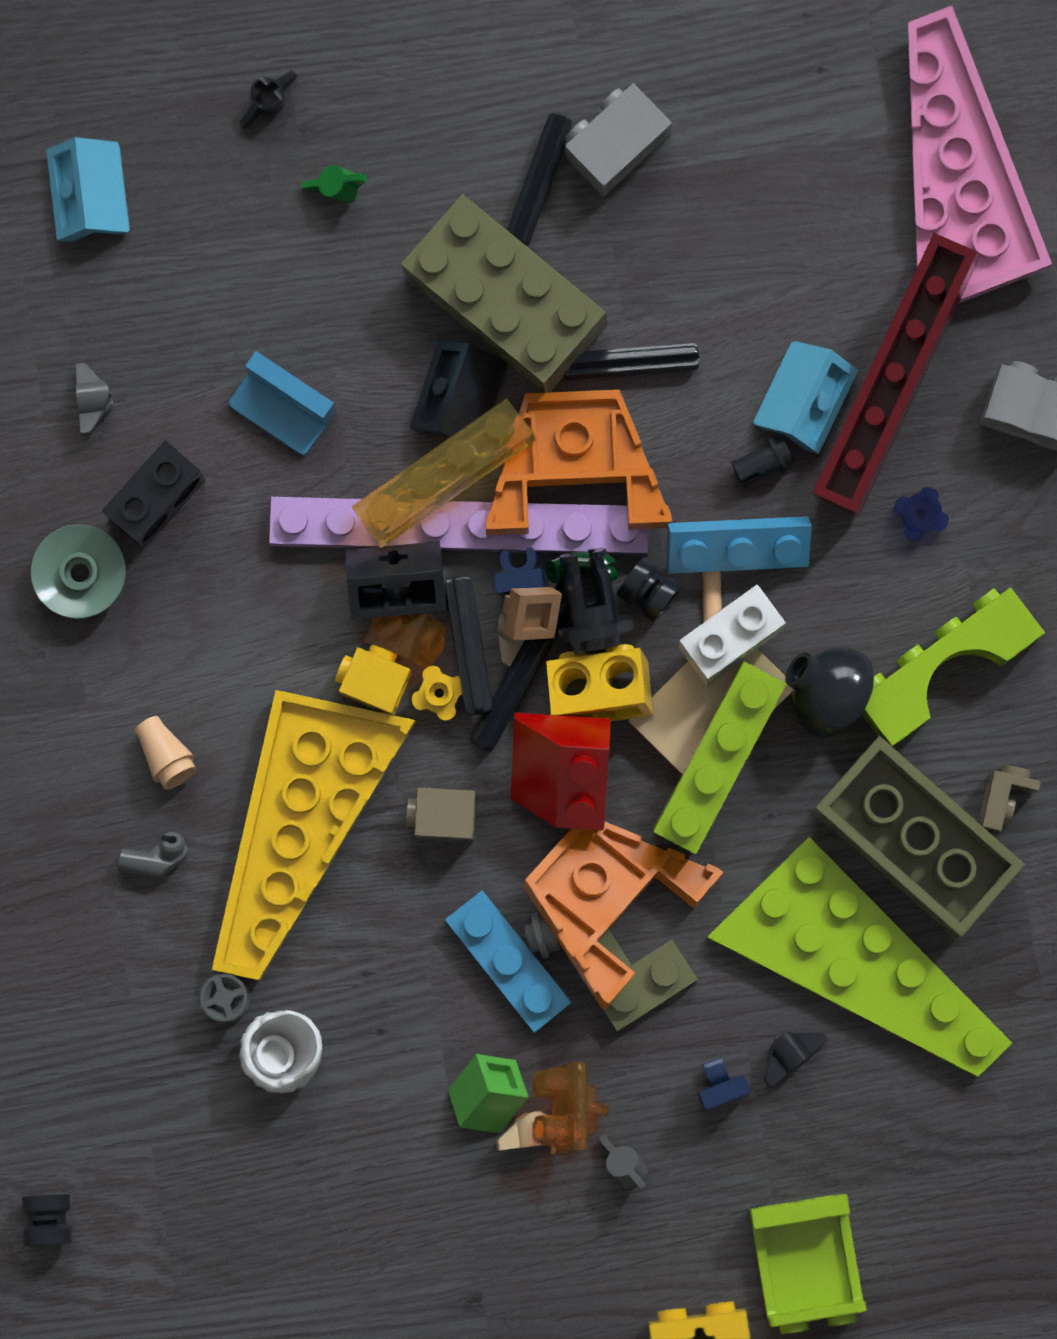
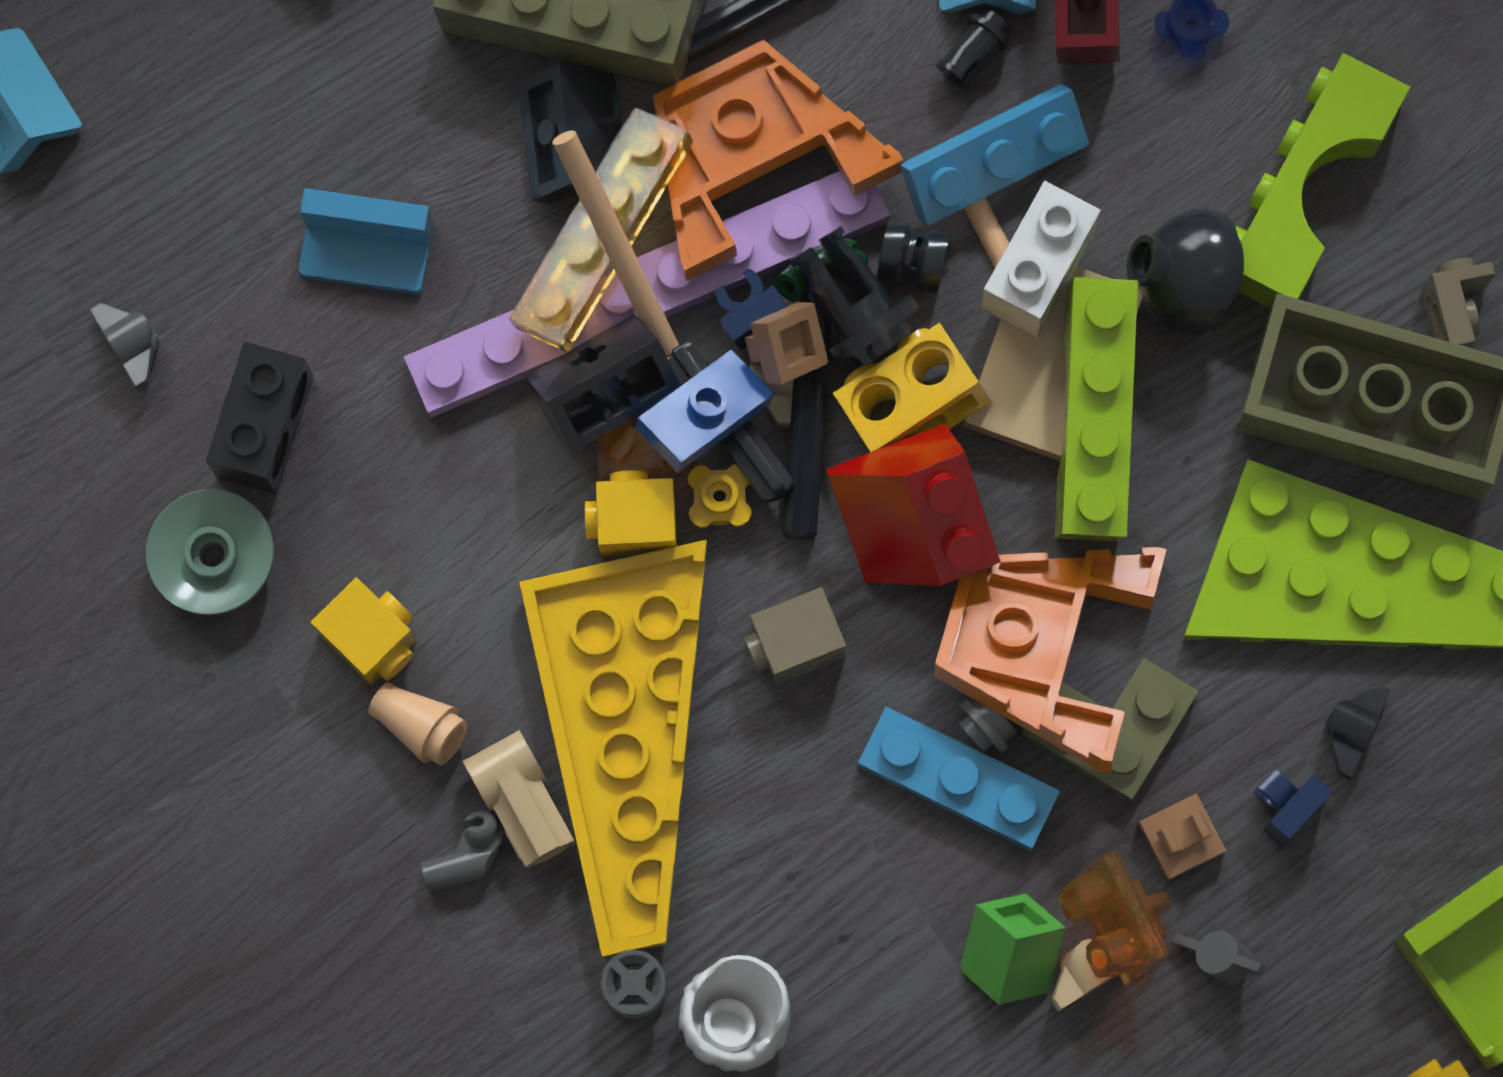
camera: 25 degrees left, 5 degrees down
(158, 675) = (367, 631): none -> yellow brick
(207, 824) = (515, 789): none -> tan piece
(445, 490) = (613, 238): none -> light nougat bar
(453, 633) = (704, 411): none -> plate
(638, 1072) = (1181, 837): none -> medium nougat tile

